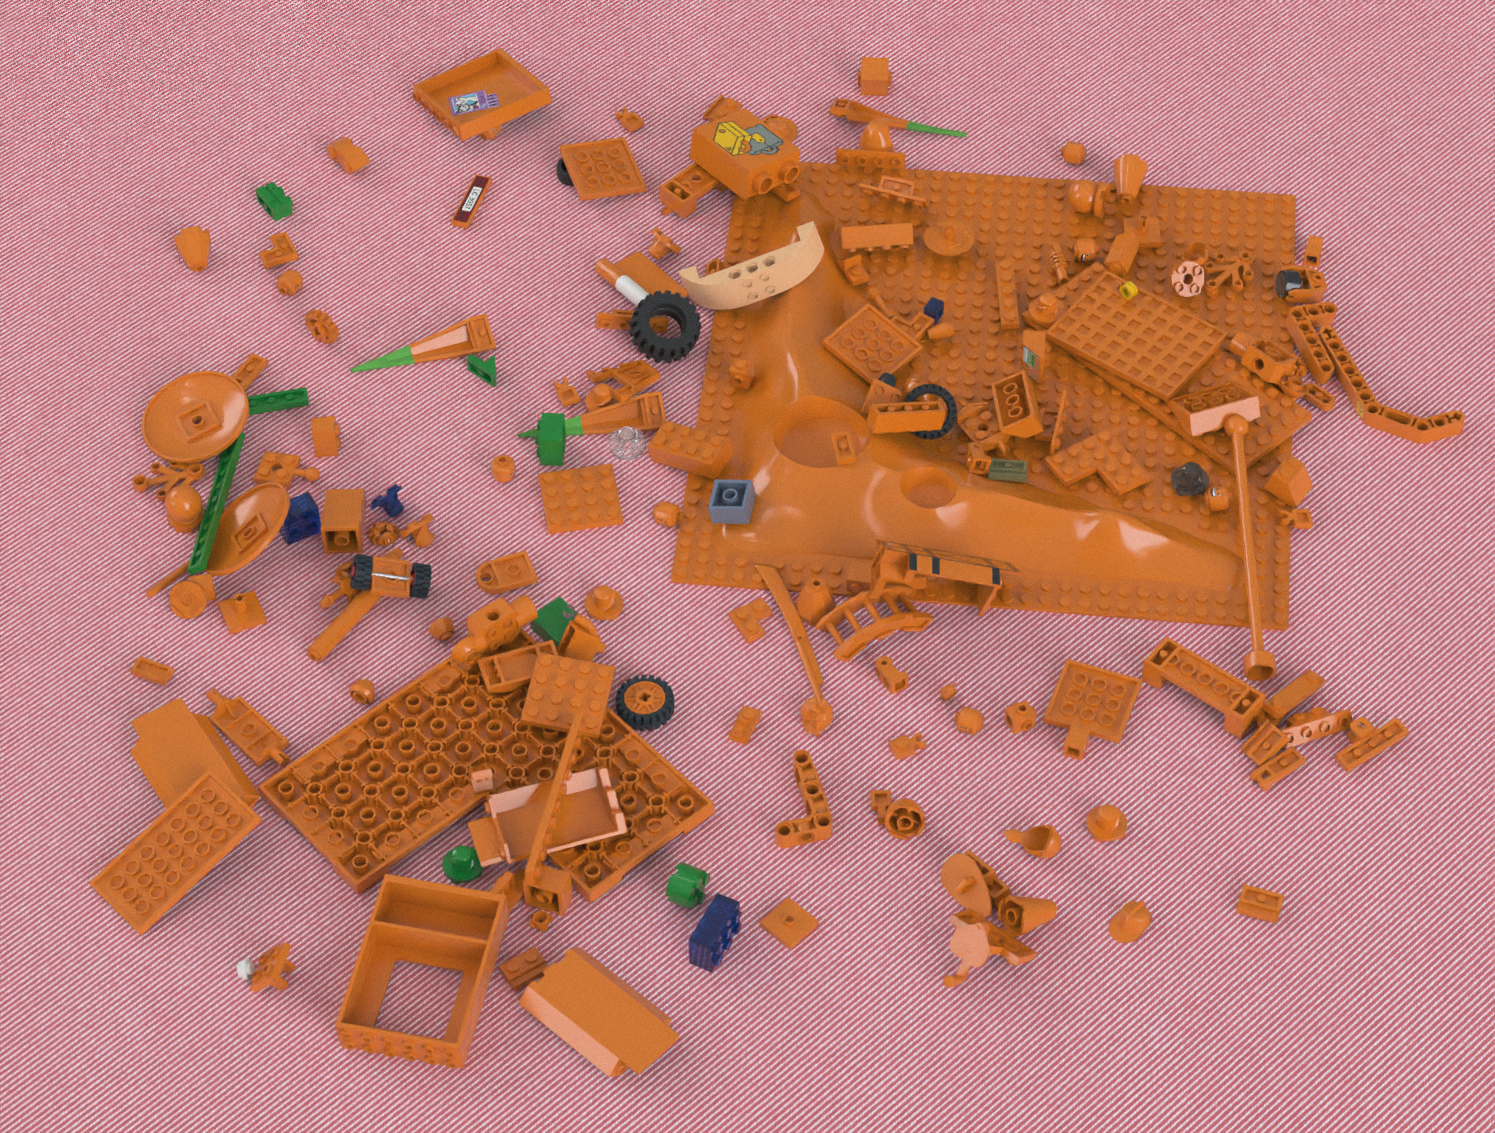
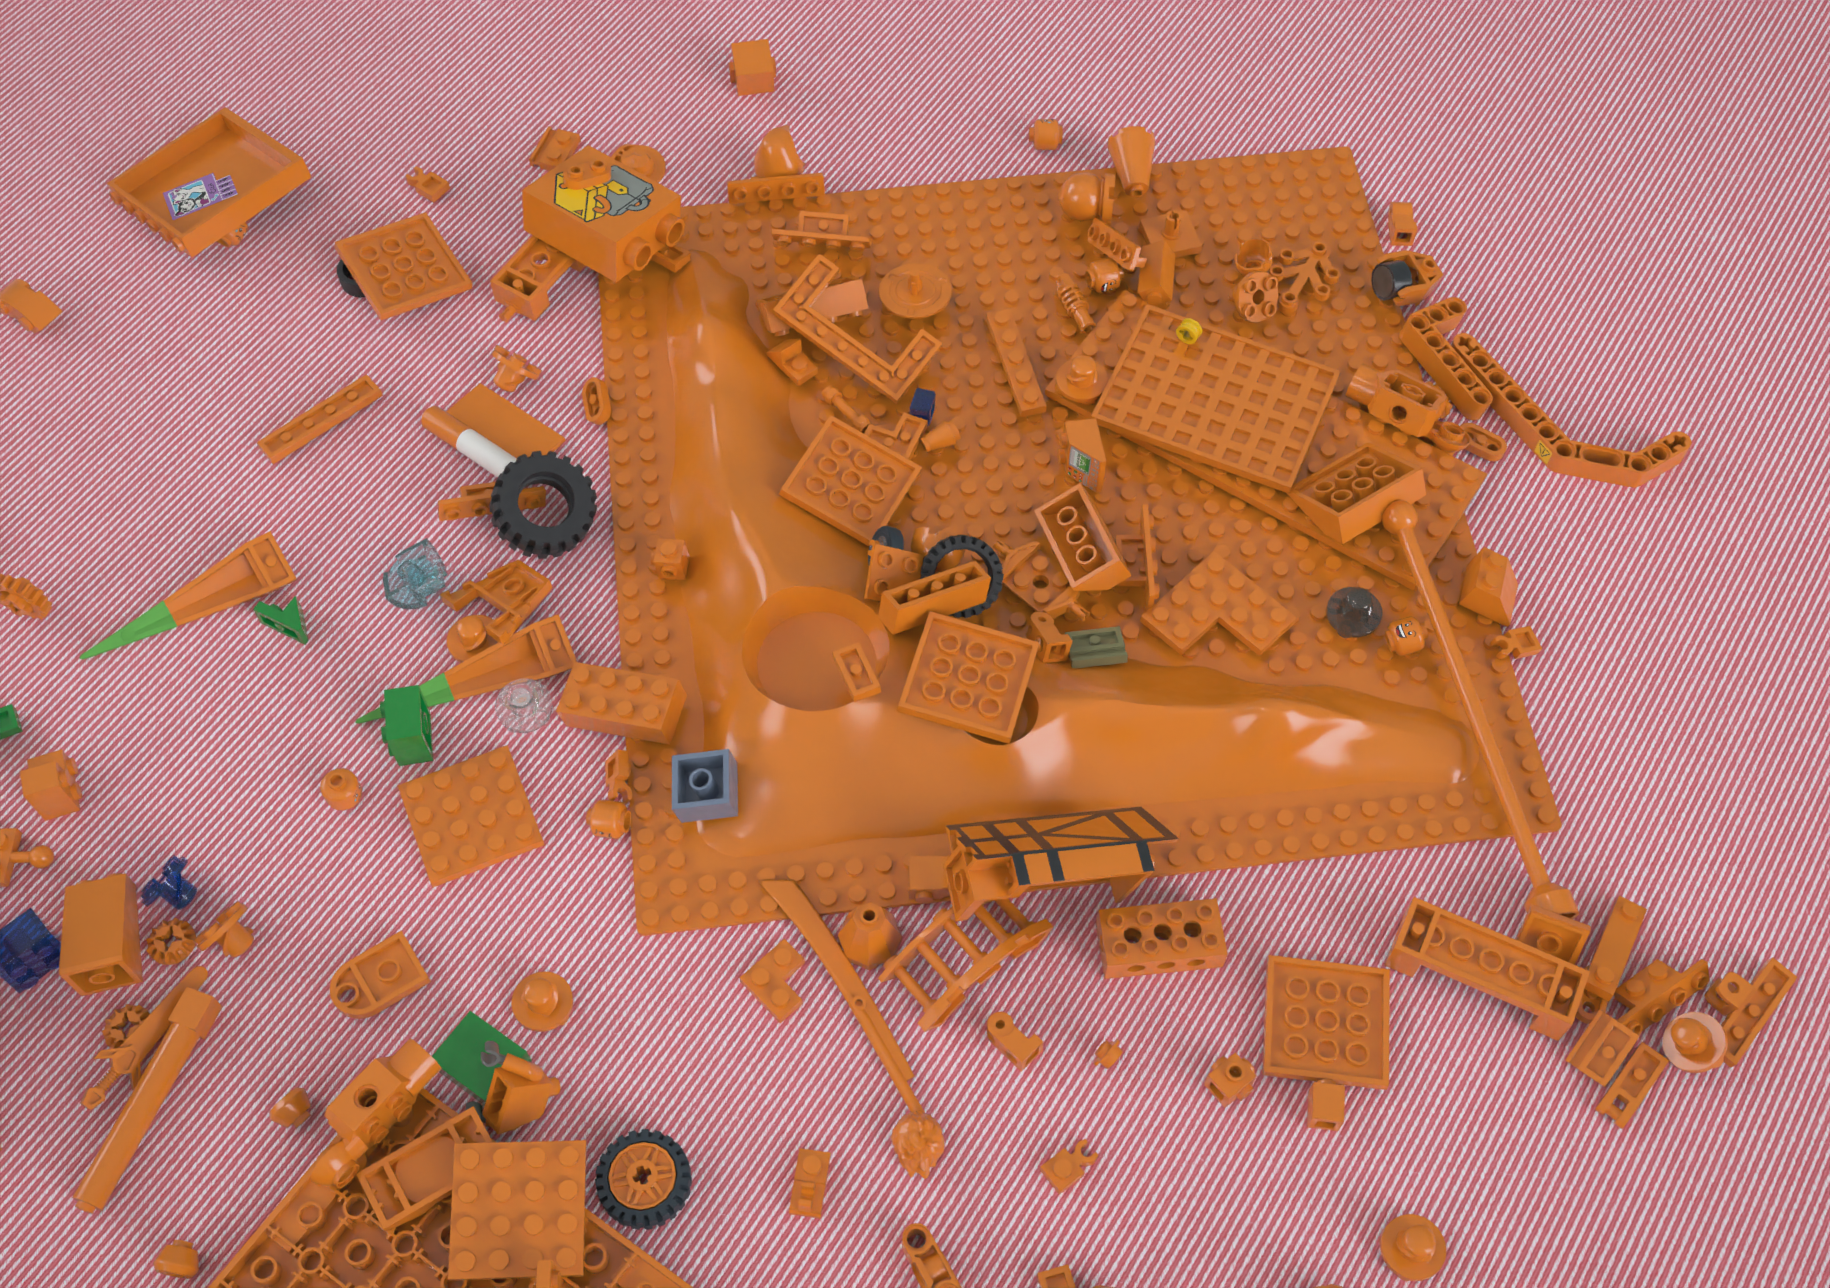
camera: 15 degrees left, 10 degrees up
(390, 577) = (189, 1036): plate -> none
(471, 201) = (222, 346): tile -> none
(528, 255) = (319, 419): none -> orange plate
(566, 394) = (416, 639): orange plate -> none
(573, 356) = (414, 576): none -> clear light blue brick
(678, 490) = (616, 772): none -> orange plate
(739, 126) = (587, 174): none -> orange plate
(758, 276) = (663, 402): light nougat slope -> none
(862, 114) = (750, 124): orange plate -> none
(915, 464) = (968, 677): none -> orange plate
(916, 291) = (887, 379): none -> orange plate
(969, 720) = (1153, 1100): orange head -> none
(1000, 637) = (1162, 920): none -> orange brick
(1097, 231) = (1115, 245): none -> orange bracket
(1254, 674) = (1553, 933): none -> orange plate
(1324, 750) = (1695, 1042): none -> orange plate

